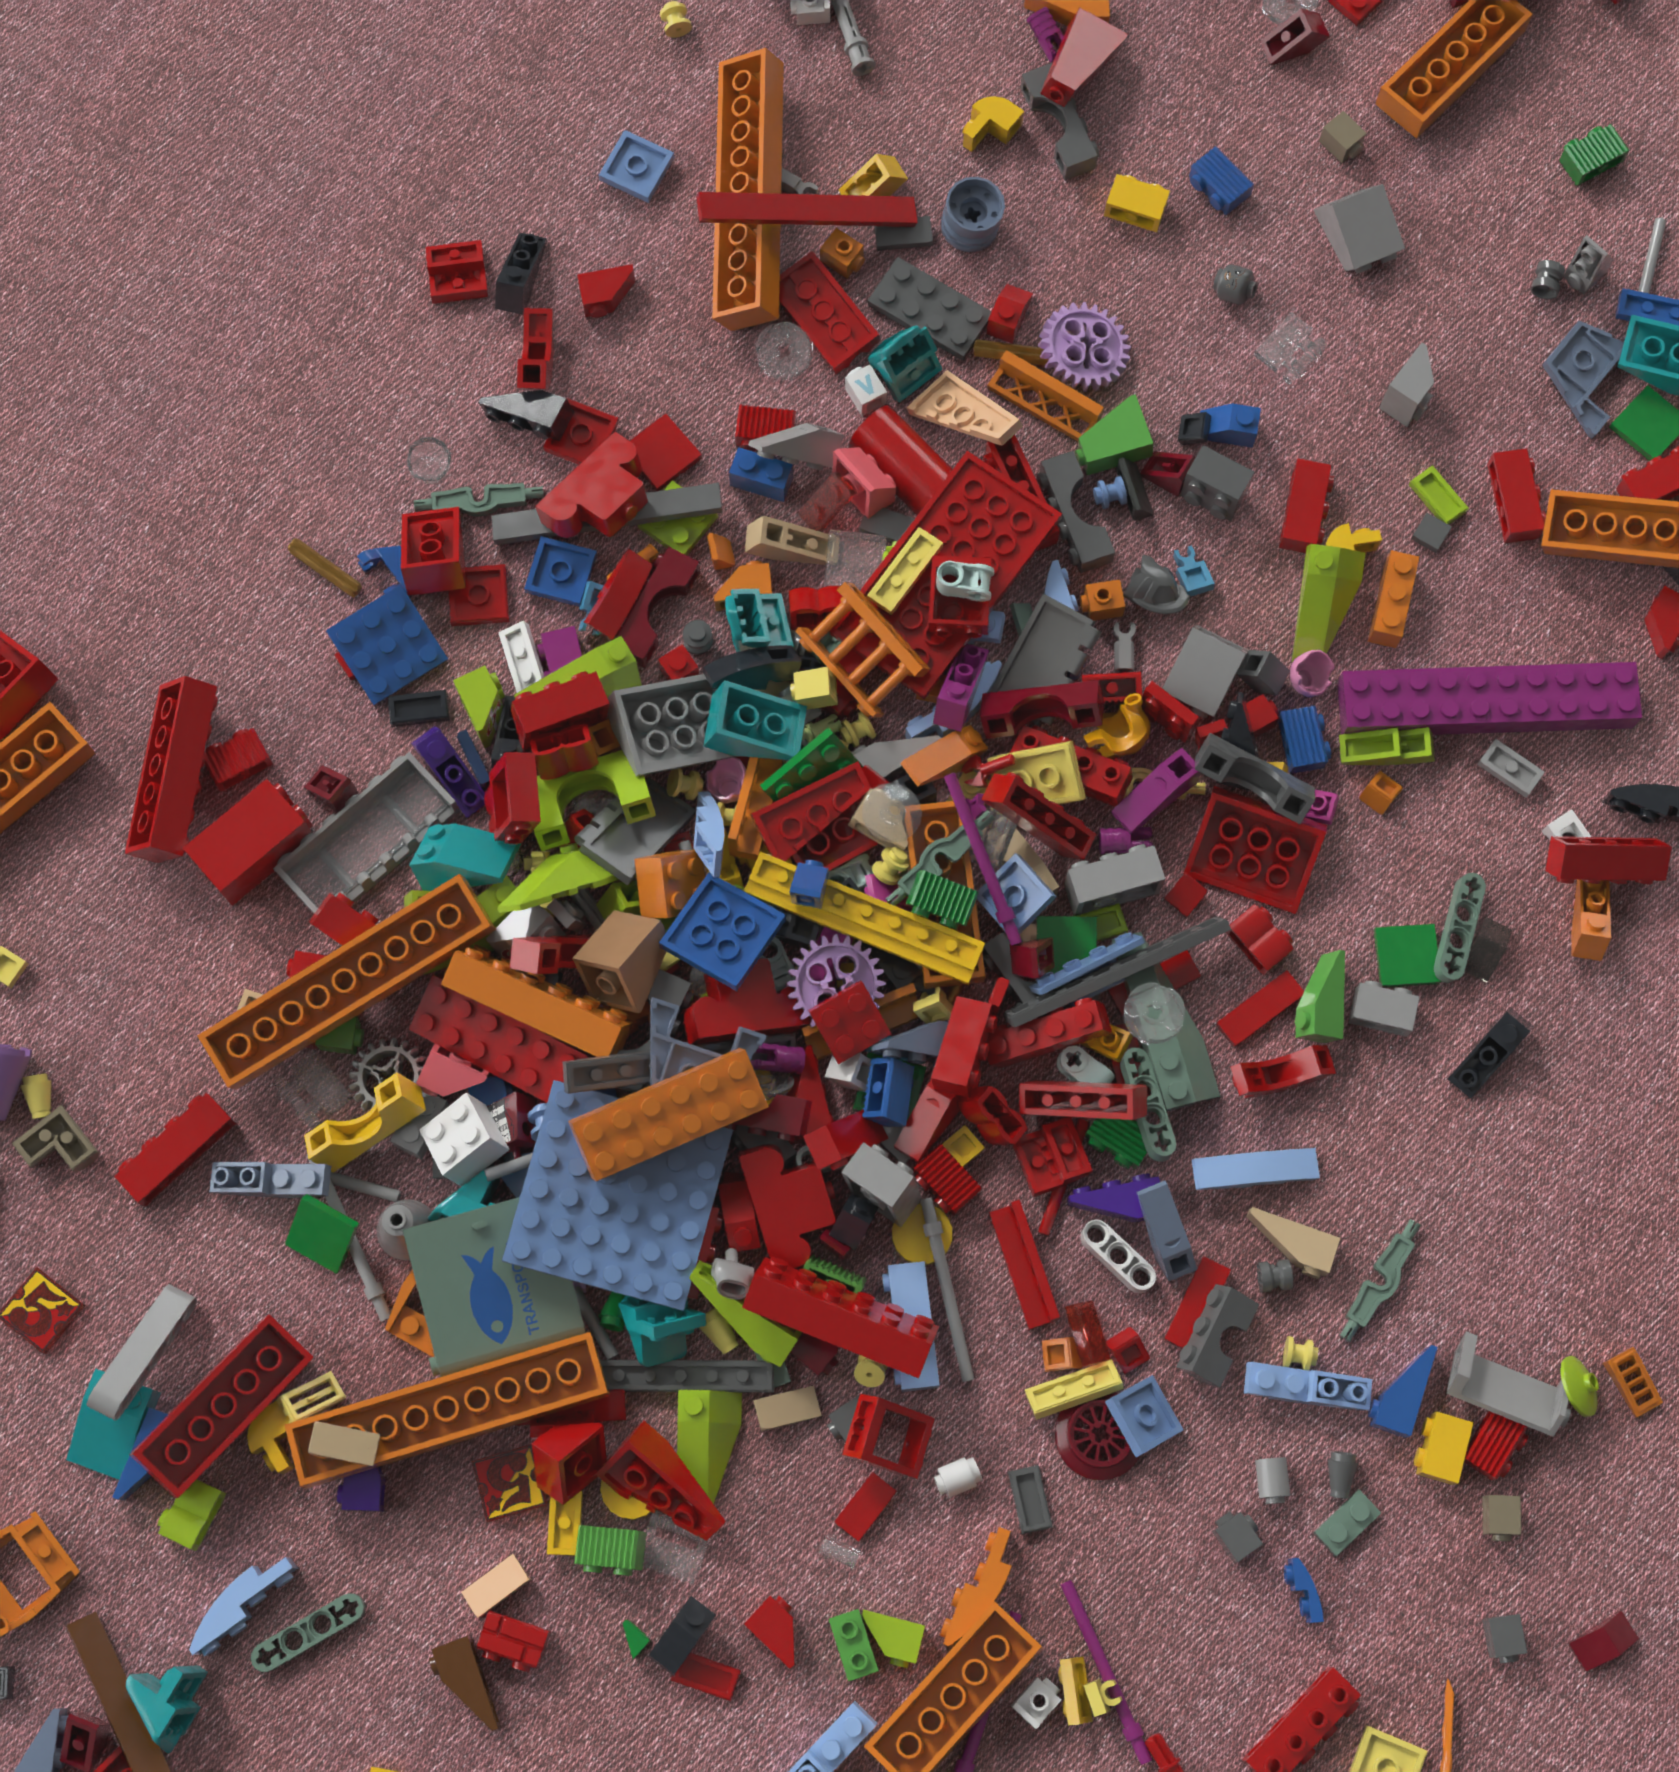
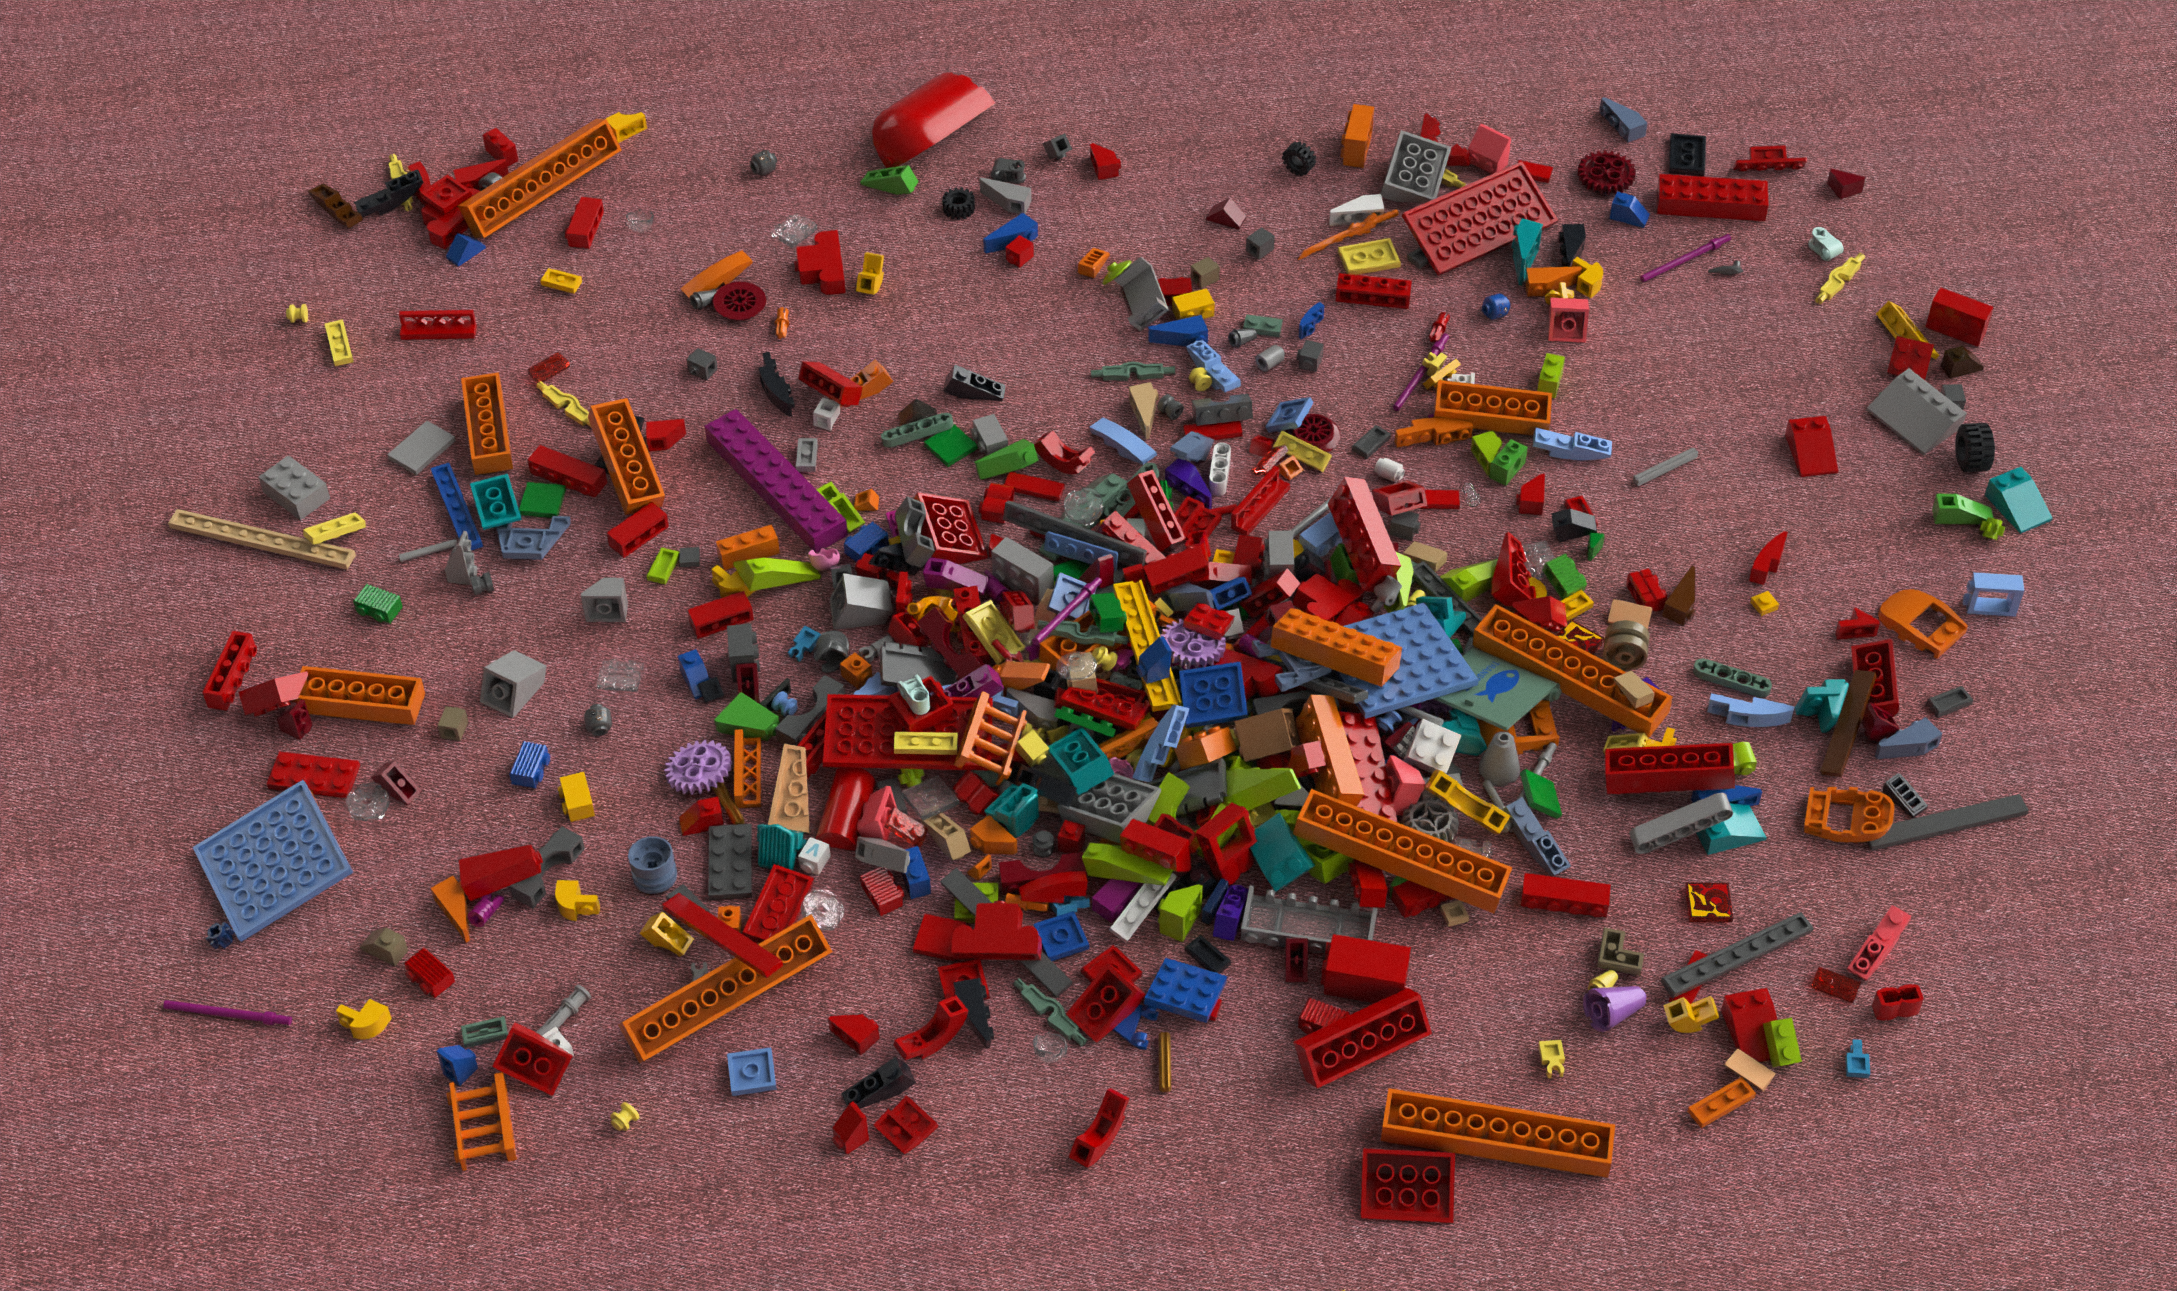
camera: 125 degrees left, 25 degrees down
(286, 432) = (1098, 1137): none -> red arch
(439, 1521) = (1626, 645): none -> dark tan wheel
(484, 209) = (850, 1129): none -> red slope

